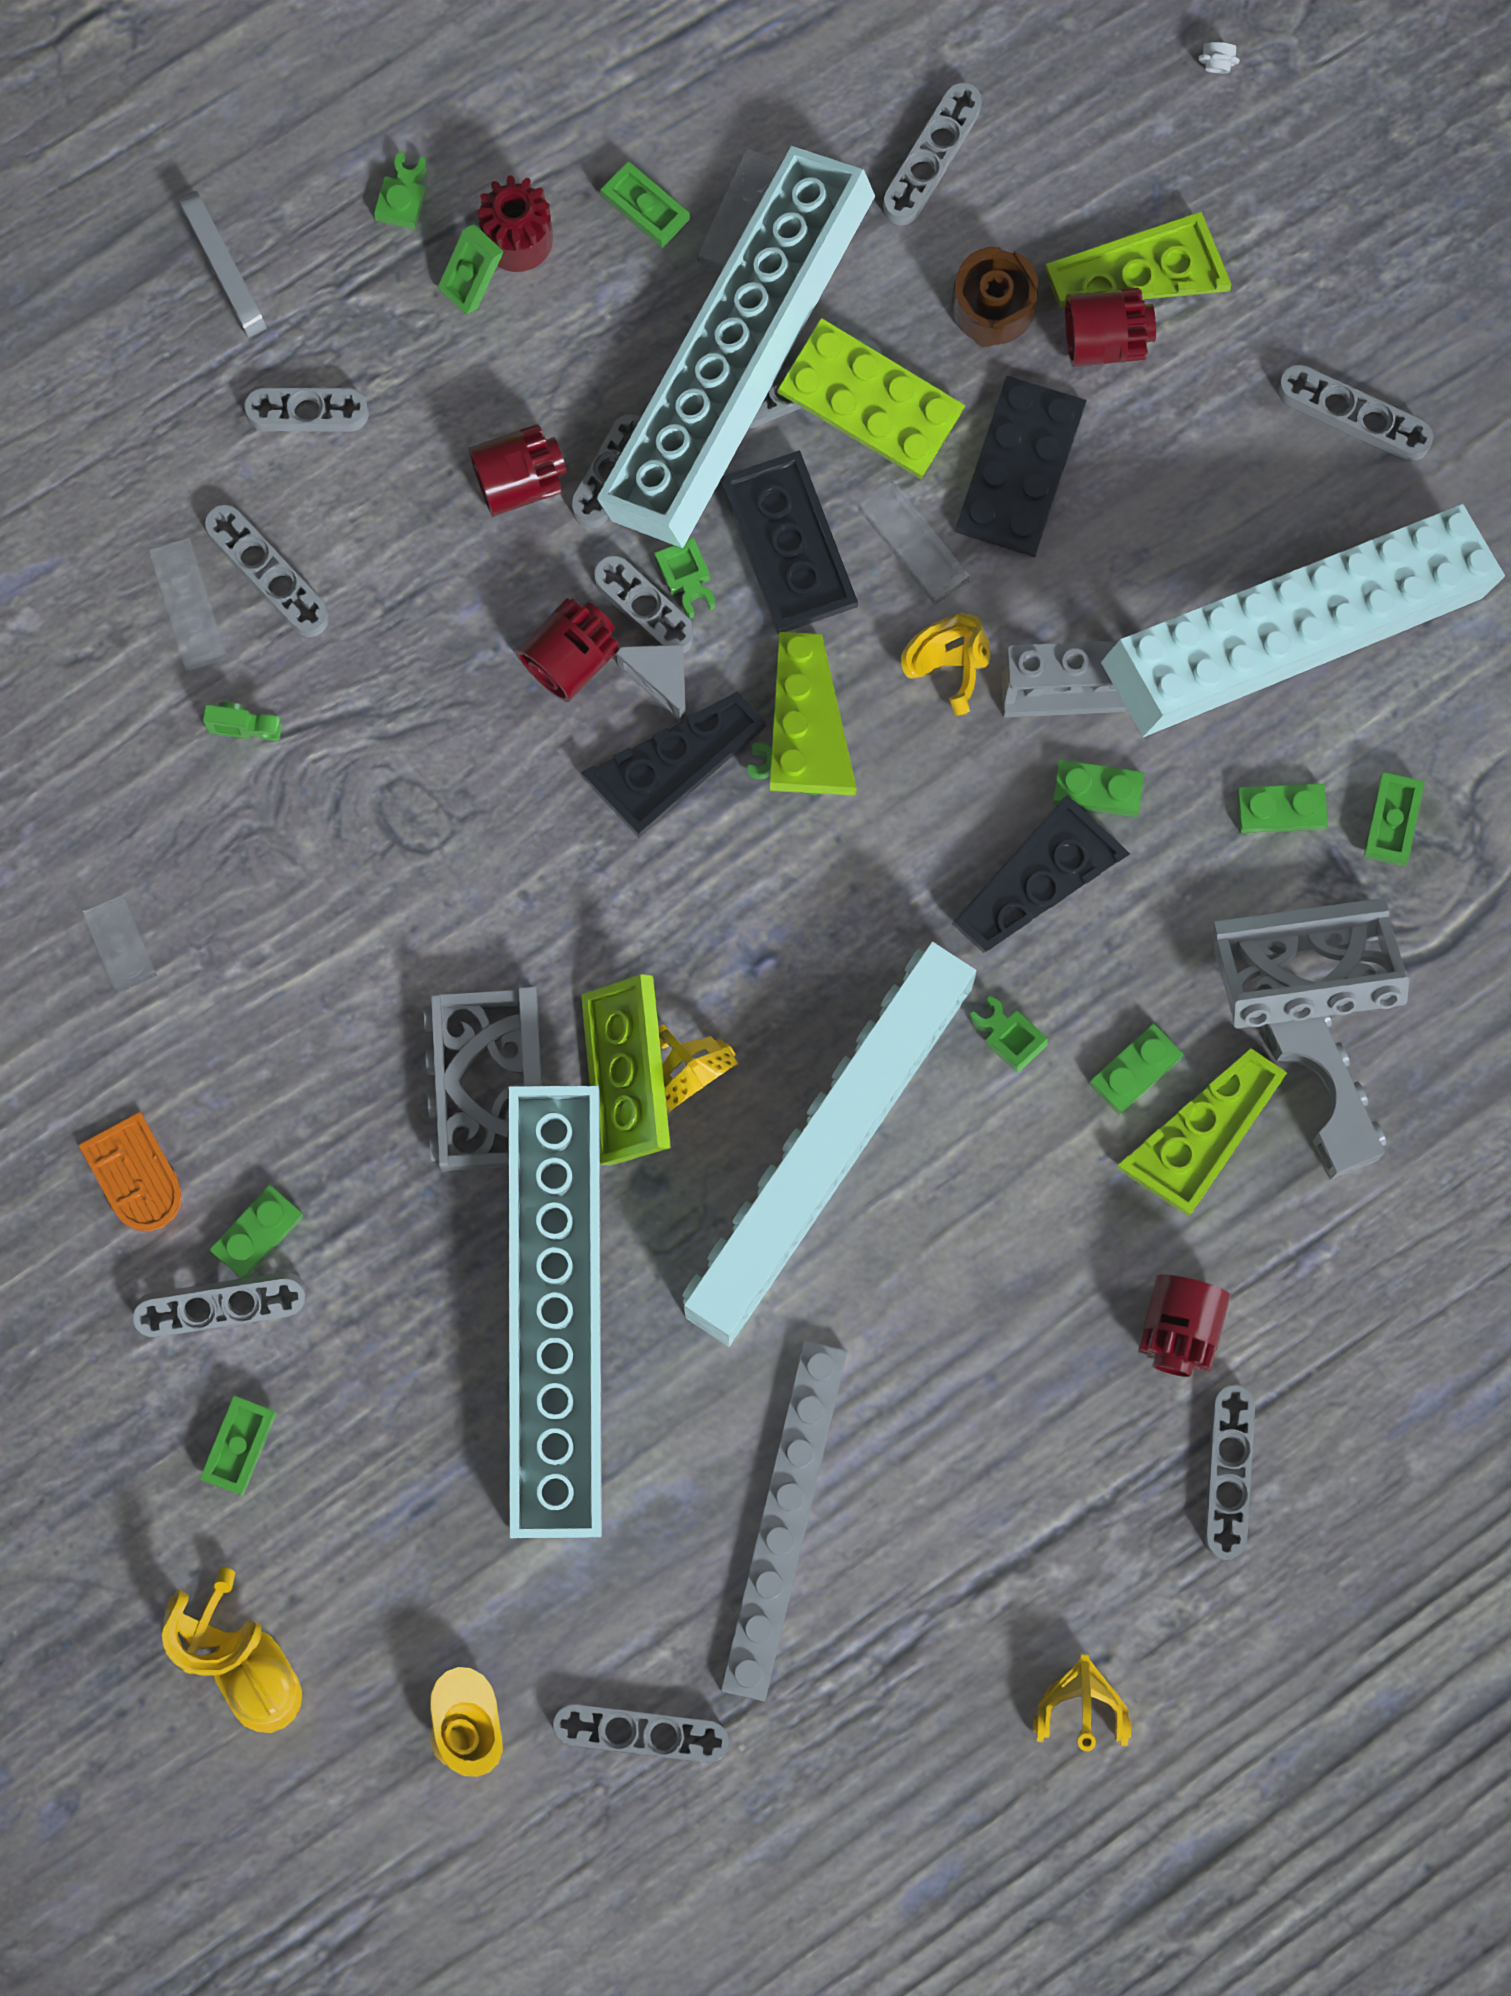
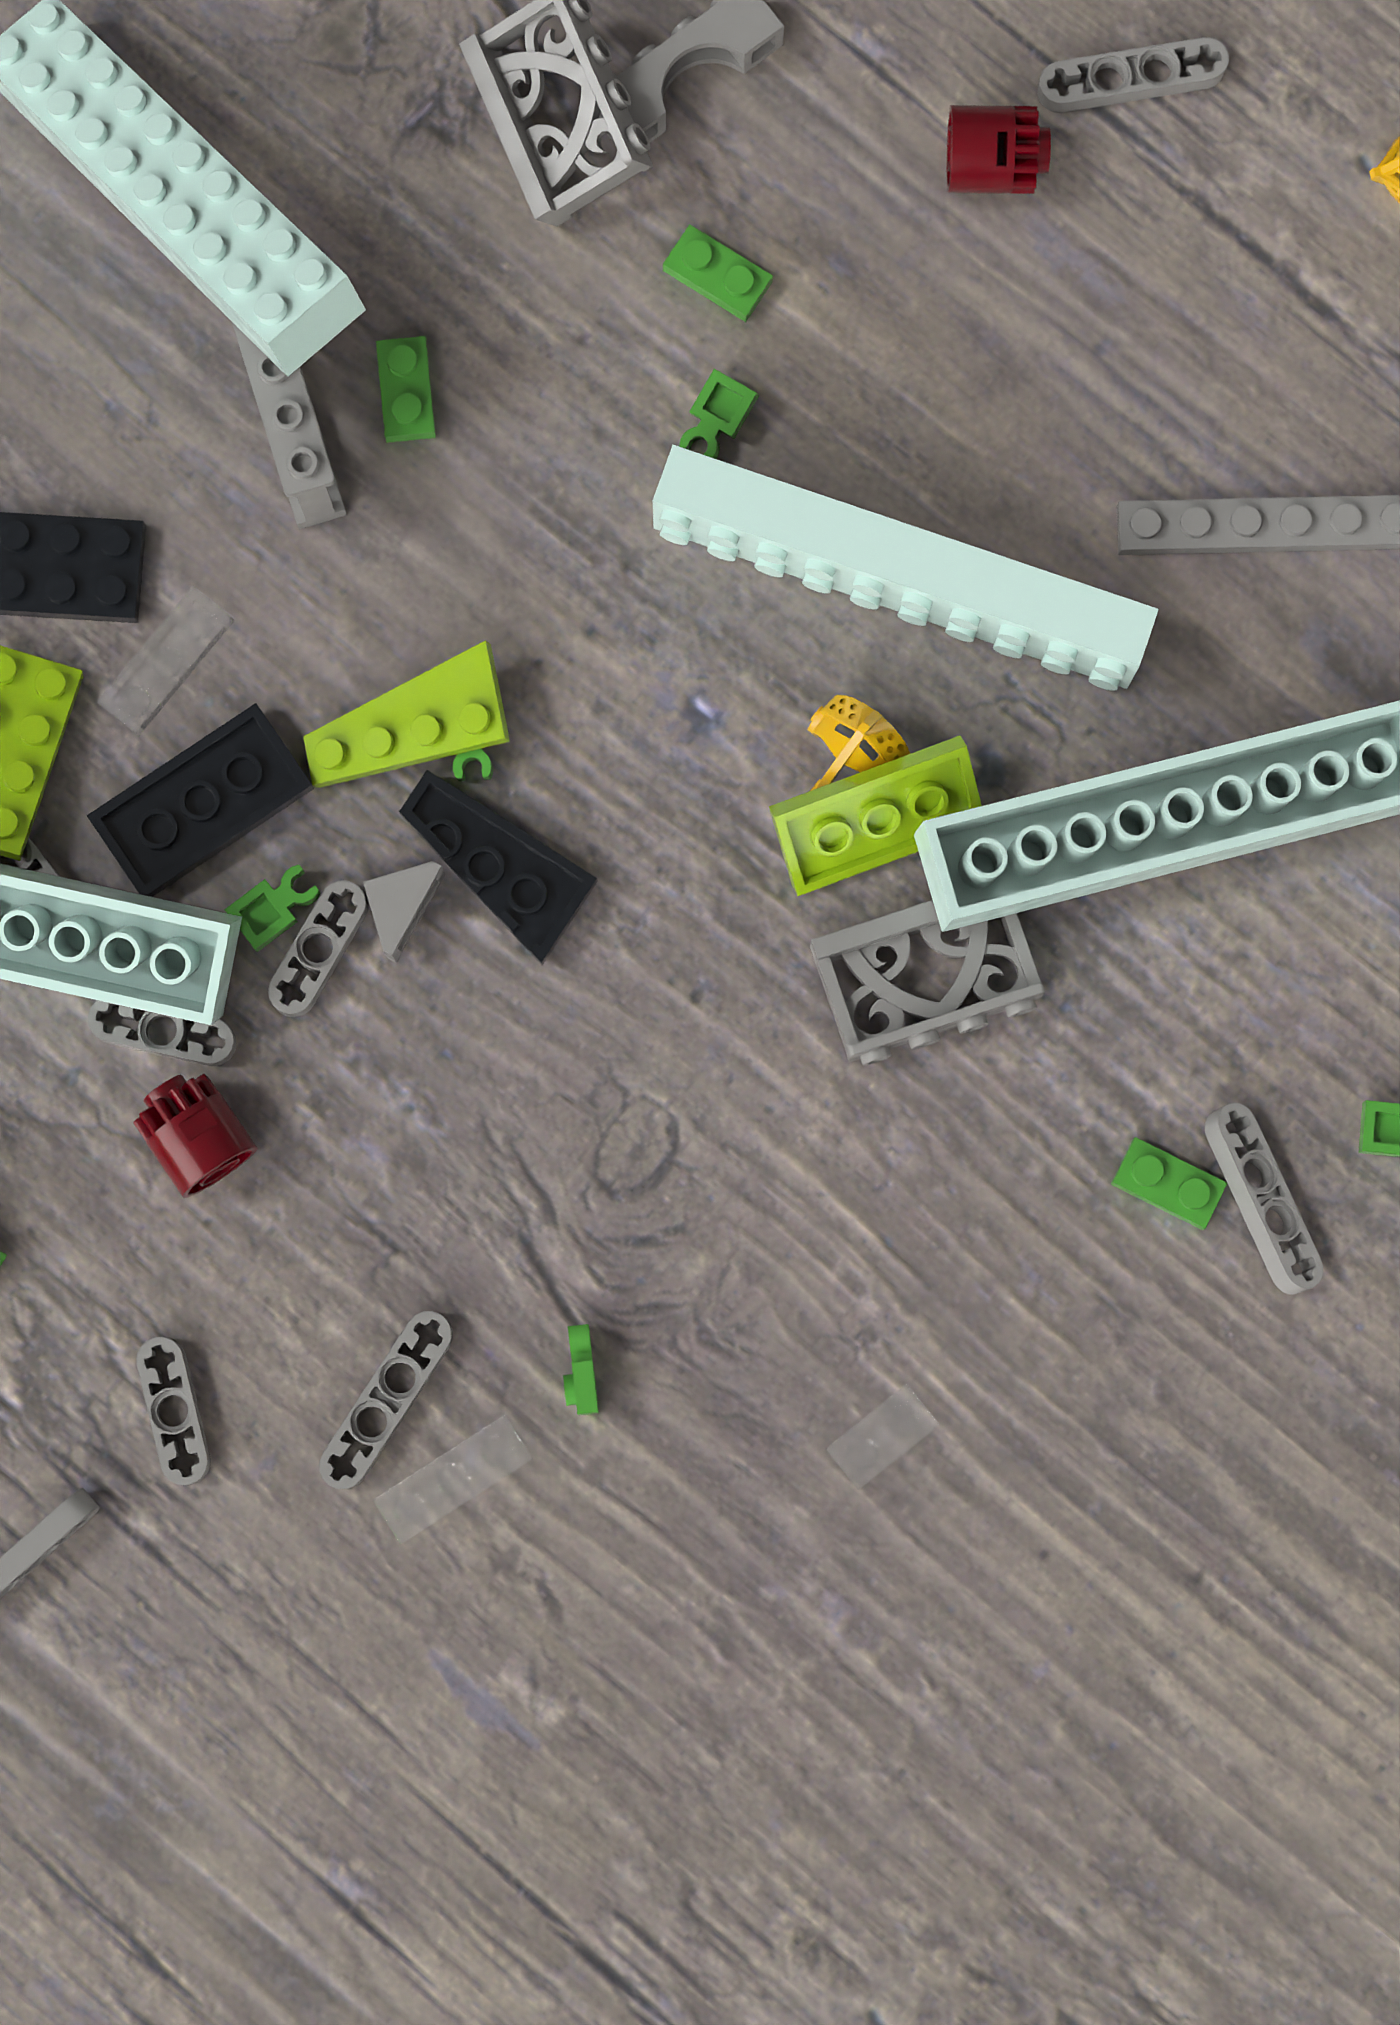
camera: 105 degrees left, 5 degrees up
(134, 1174) = (1140, 1342): orange window -> none
(569, 648) = (398, 1012): dark red gear -> none
(928, 652) = (292, 612): yellow helmet -> none
(1048, 866) = (508, 416): black wing -> none
(1198, 1141) = (778, 184): lime wing -> none
(1282, 808) = (377, 186): bright green plate -> none
(1394, 819) = (360, 61): bright green plate -> none

